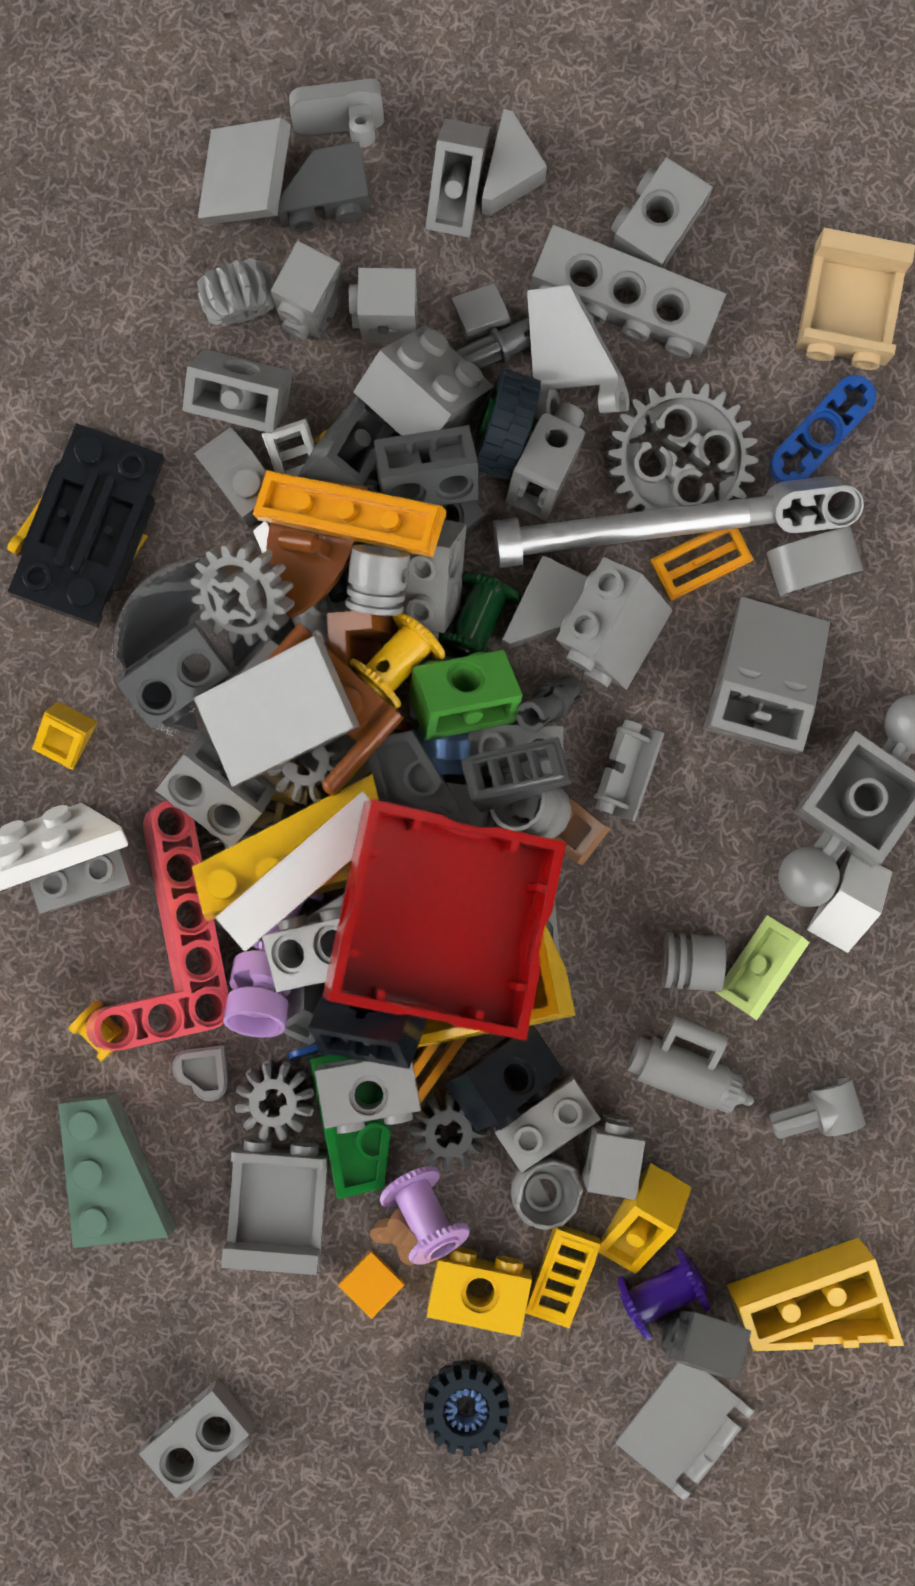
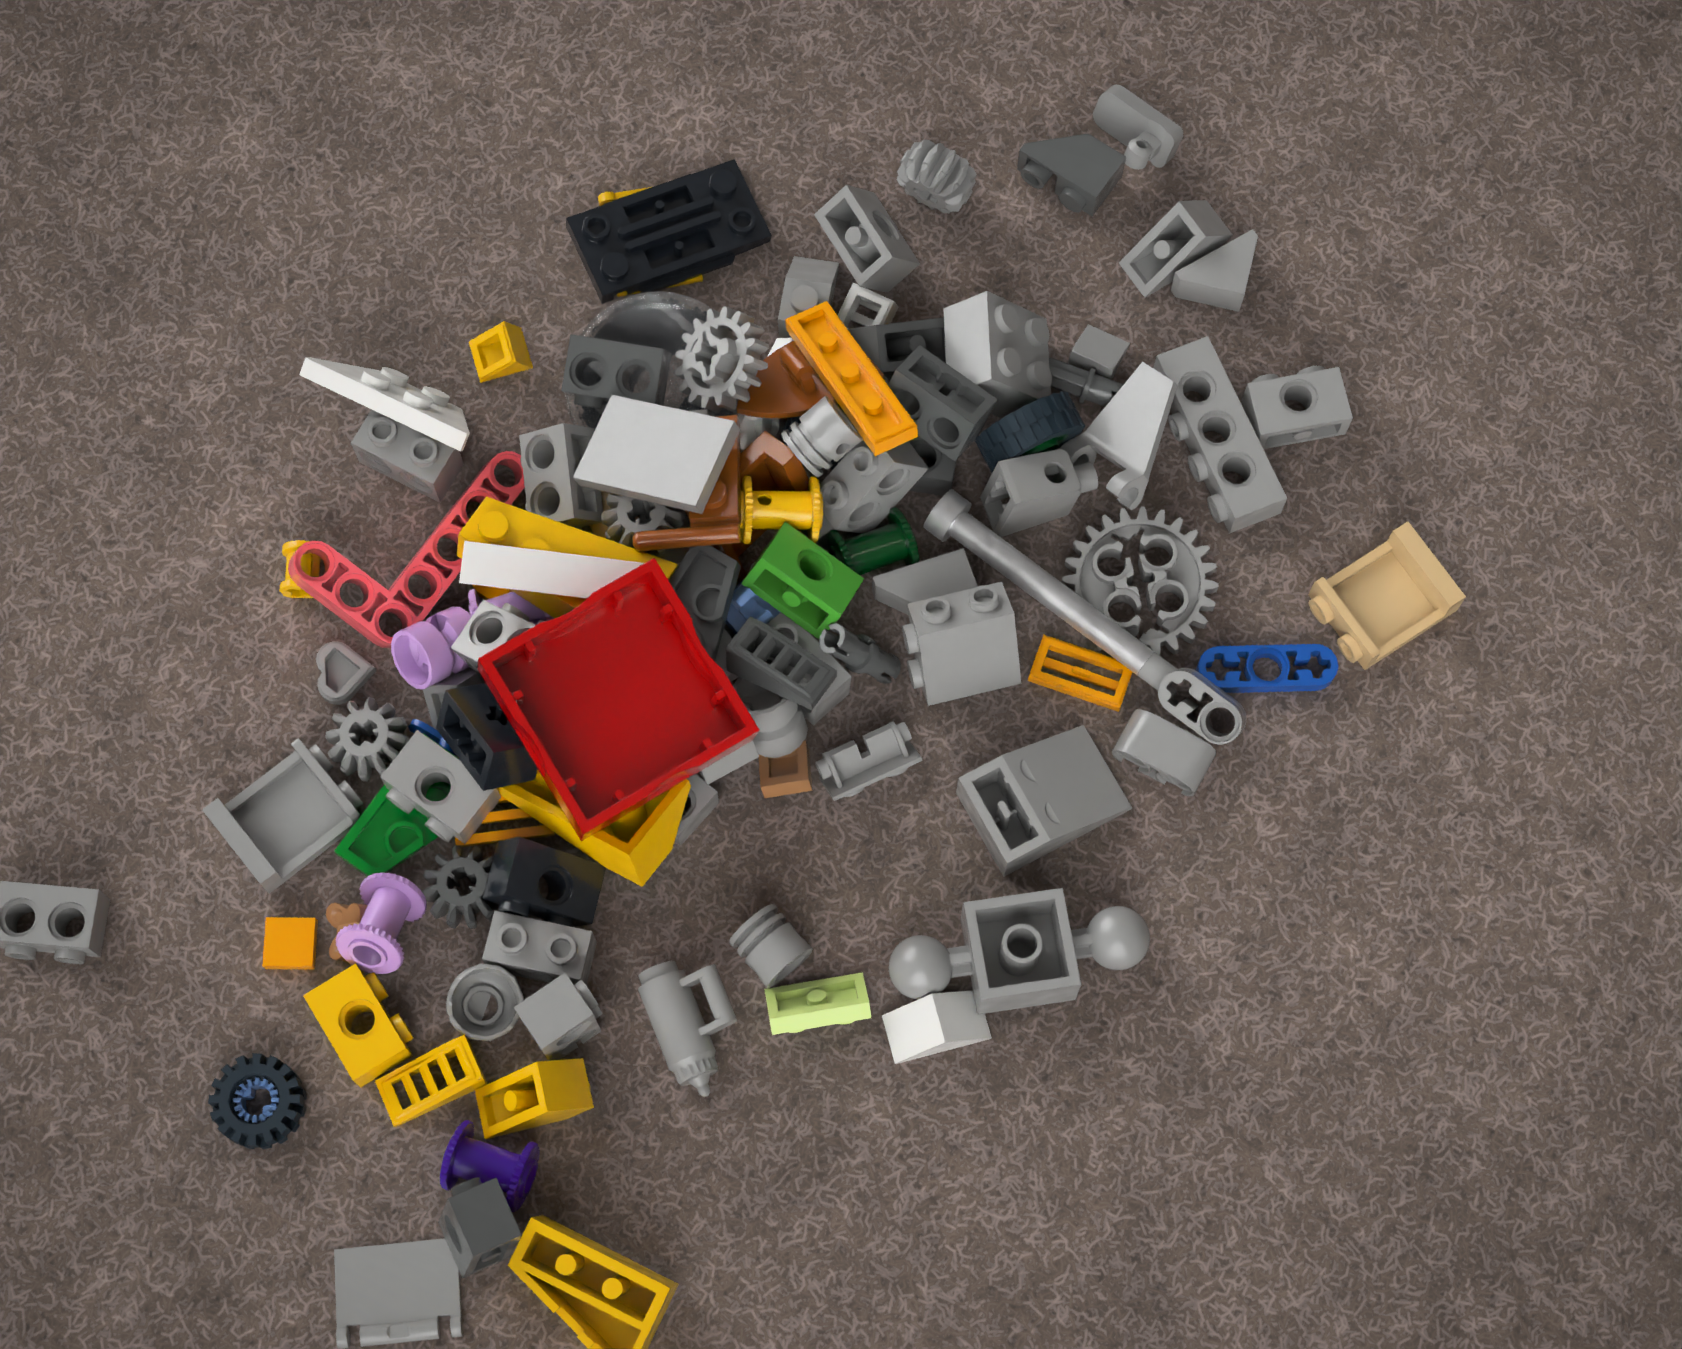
camera: 45 degrees right, 15 degrees down
(107, 1176) = (197, 669): sand green wedge -> none
(244, 171) = (1026, 106): light grey tile -> none
(308, 291) = (984, 219): light grey brick -> none
(384, 304) = (1031, 274): light grey brick -> none
(830, 1109) = (757, 1161): light grey axle -> none

